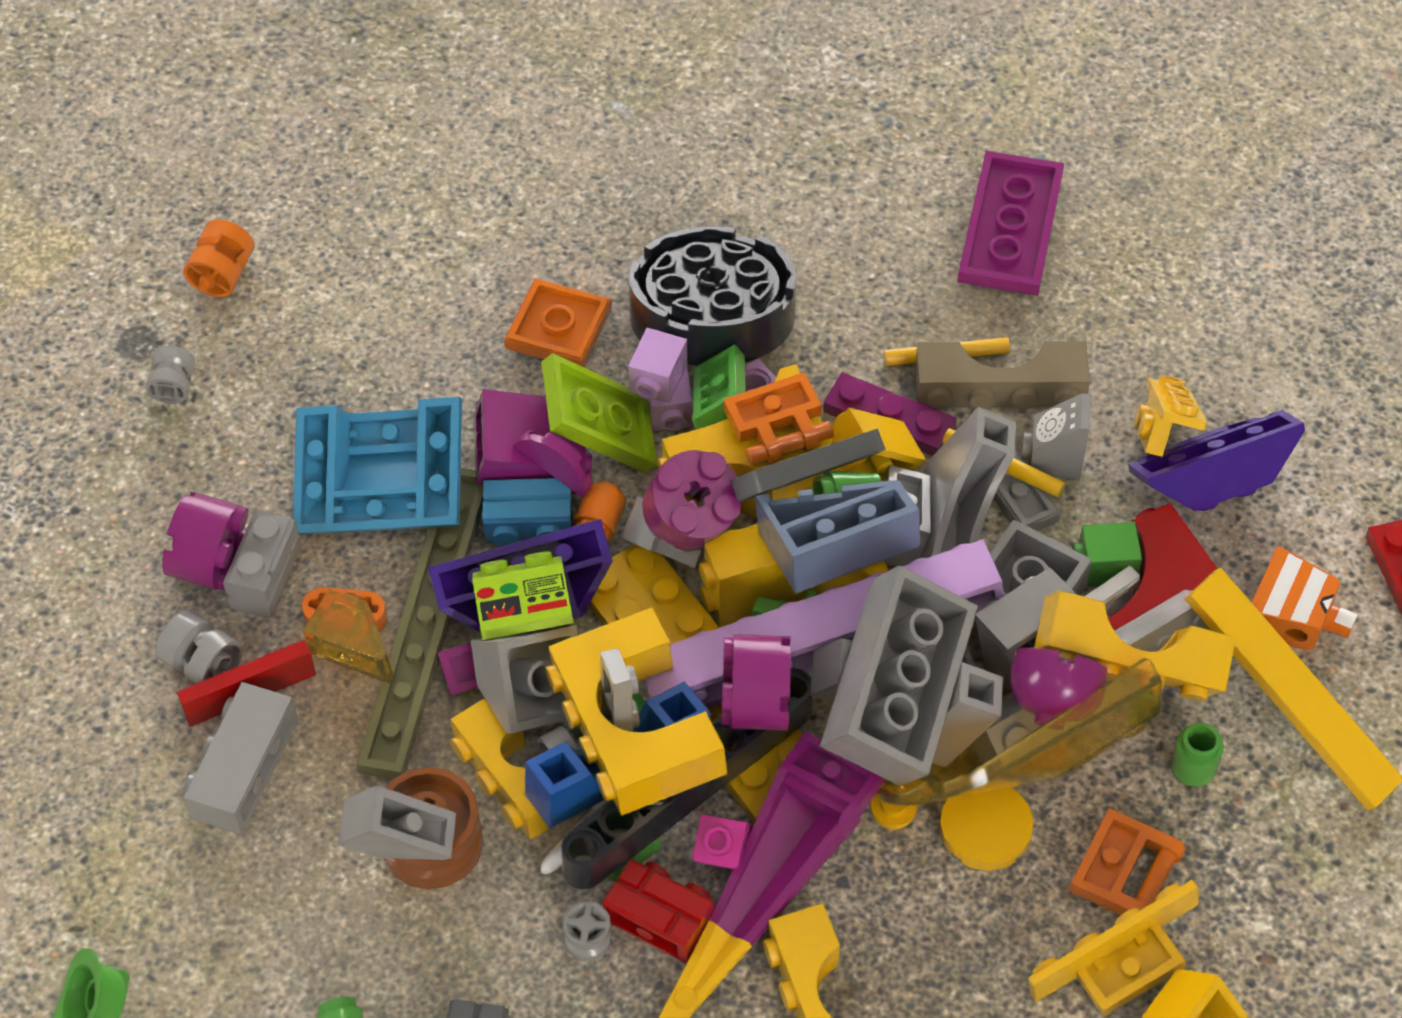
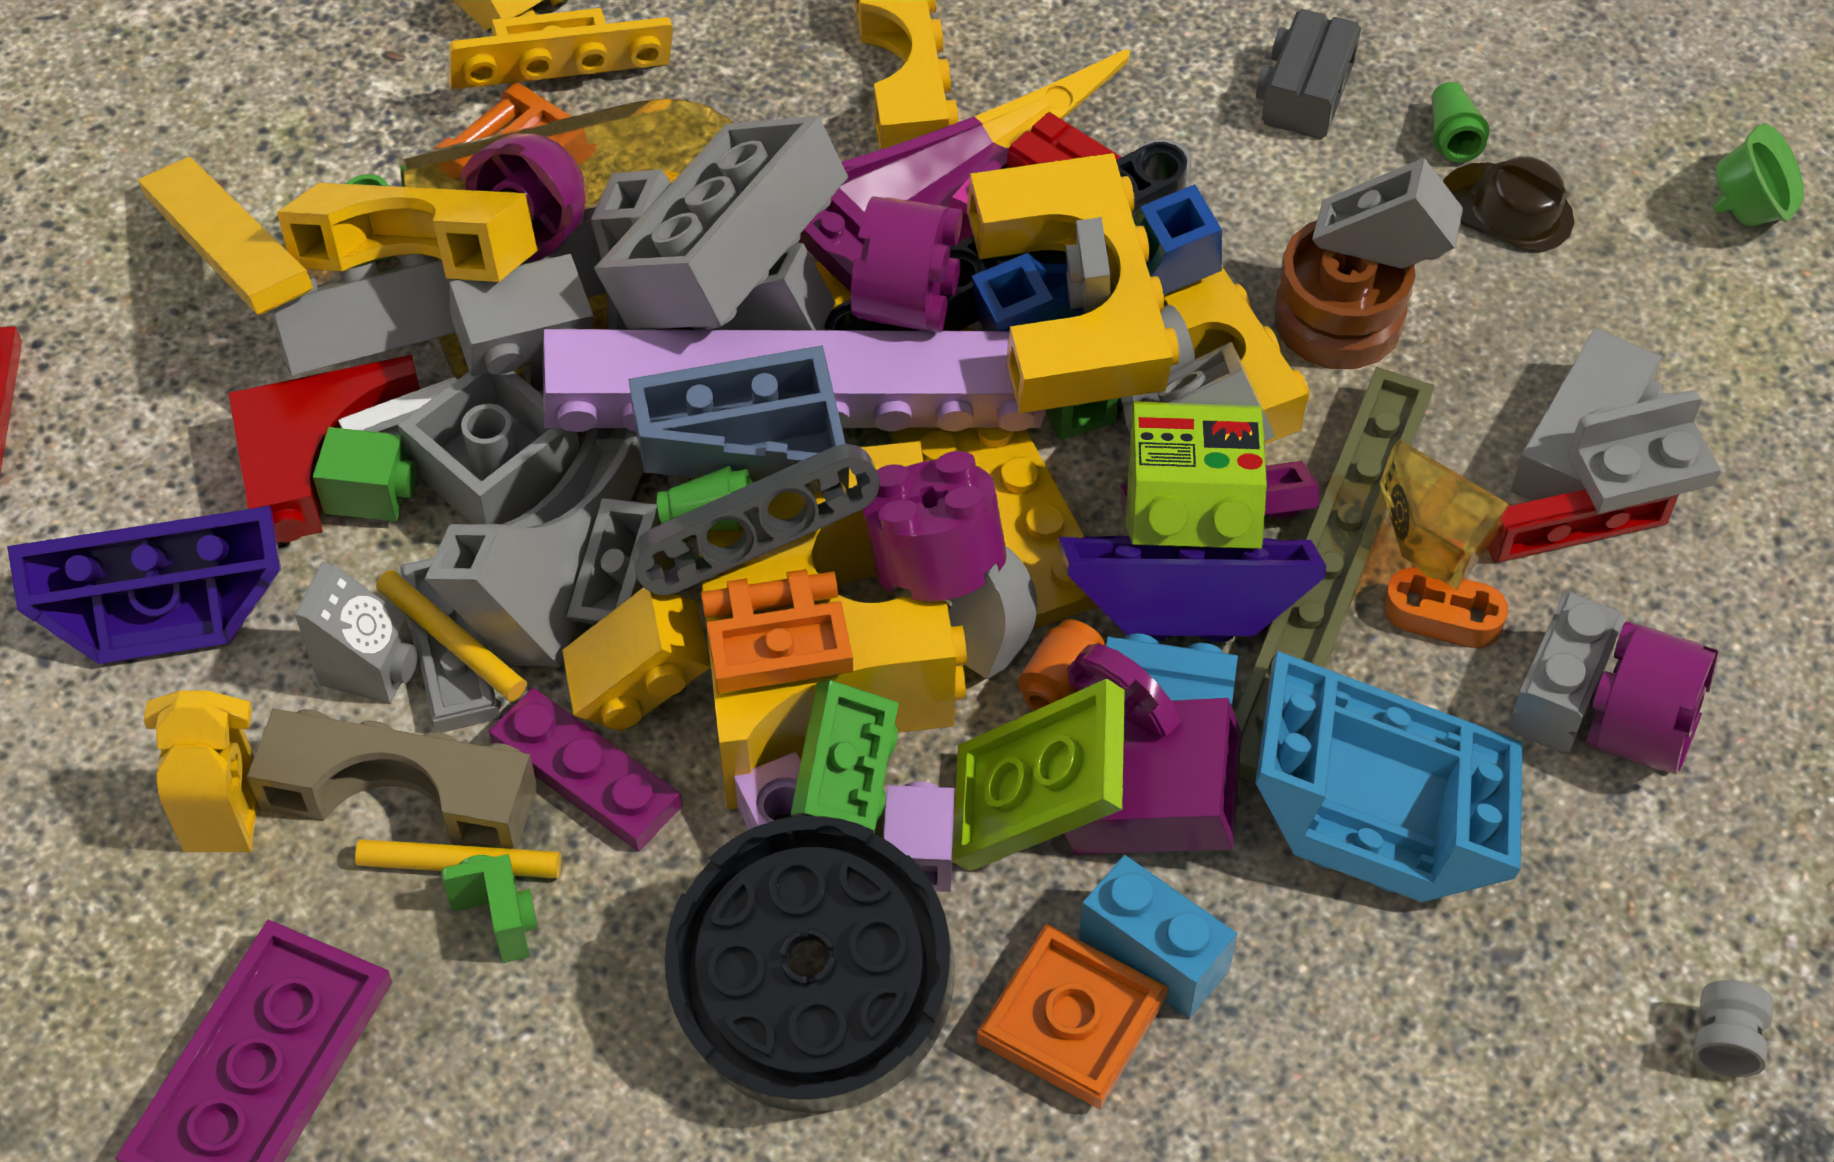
camera: 170 degrees left, 0 degrees up
(197, 648) = (1658, 565): light grey wheel -> none
(204, 695) = (1642, 452): none -> light grey bracket
(298, 971) = (1514, 201): none -> dark brown piece
(508, 358) = (1158, 934): none -> dark azure brick
(657, 365) = (934, 814): lavender brick -> none
(908, 323) = (491, 881): none -> bright green bracket
(1111, 335) = (205, 769): none -> yellow piece
(1167, 404) = (186, 608): yellow bracket -> none
(1300, 601) = (152, 384): orange torso -> none

